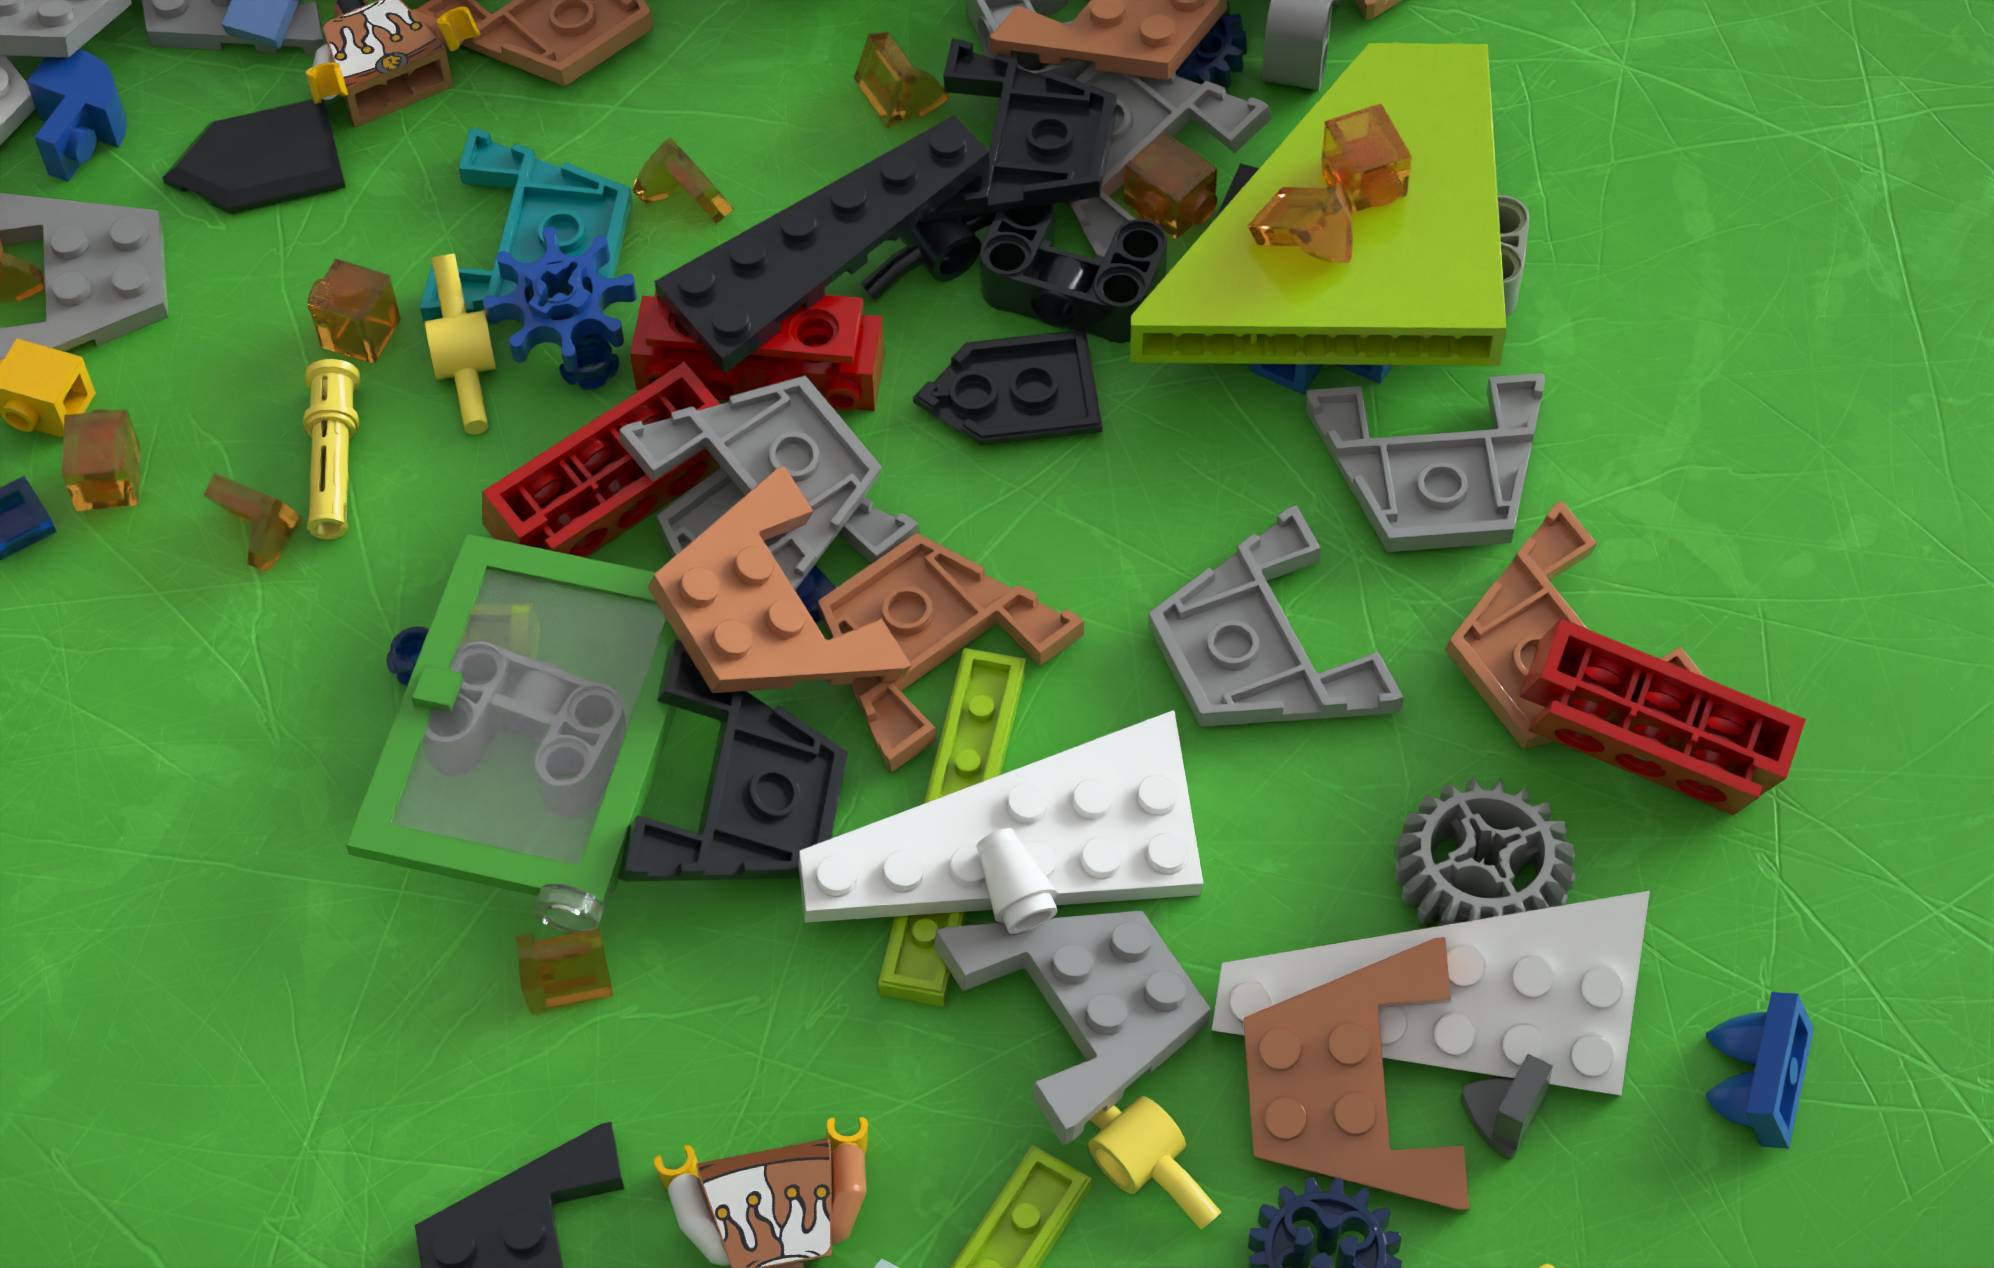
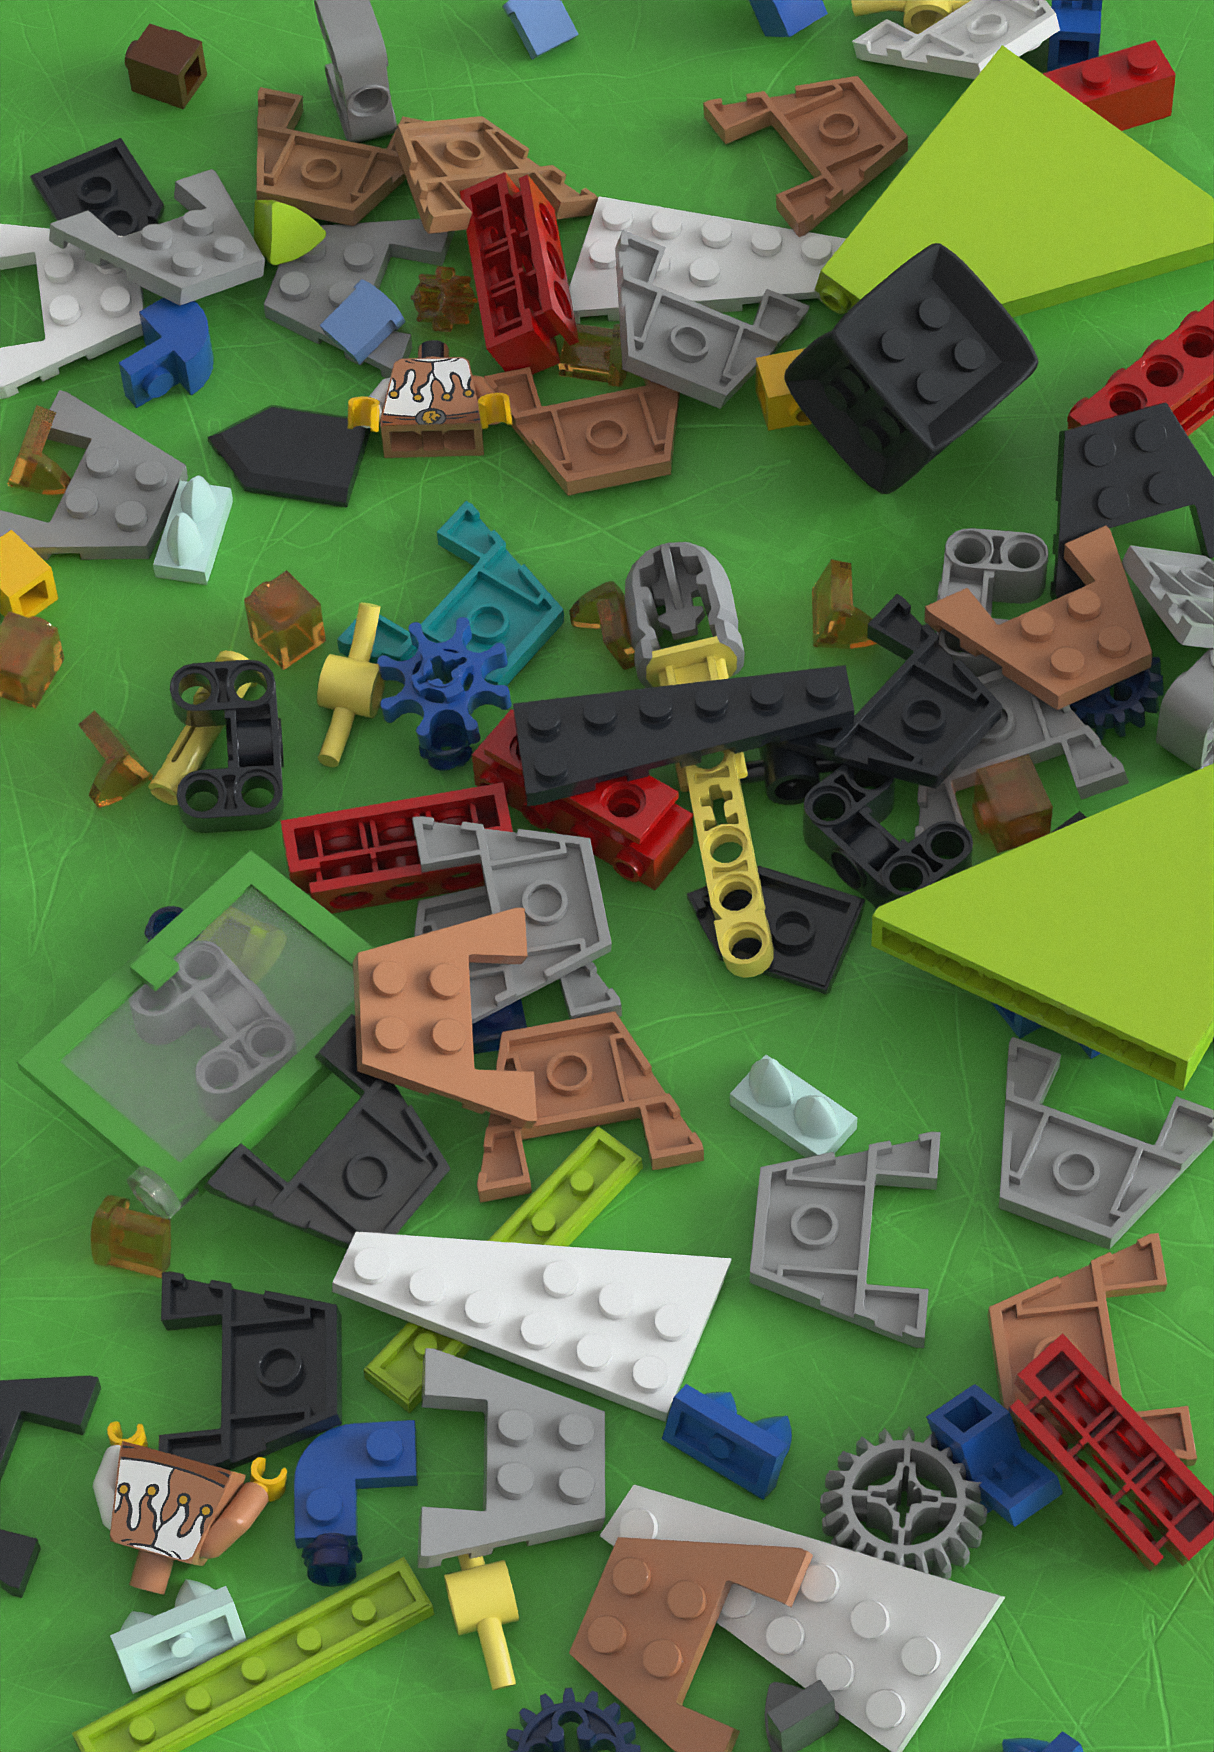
camera: 30 degrees right, 0 degrees up
(202, 270) = (193, 531): none -> light aqua tile
(395, 434) = (252, 745): none -> black beam
(726, 112) = (673, 577): none -> piece
(789, 1021) = (275, 1368): none -> black wing
(910, 1094) = (346, 1461): none -> blue plate
(962, 1183) = (331, 1560): none -> plate
(1015, 883) = (504, 1340): white cone -> none
(1138, 549) = (792, 1109): none -> light aqua tile
(1279, 881) = (724, 1441): none -> blue tile
(1307, 219) = (1068, 894): clear orange tile -> none
(1366, 158) = (1151, 859): clear orange brick -> none
(1528, 759) = (989, 1447): none -> blue brick

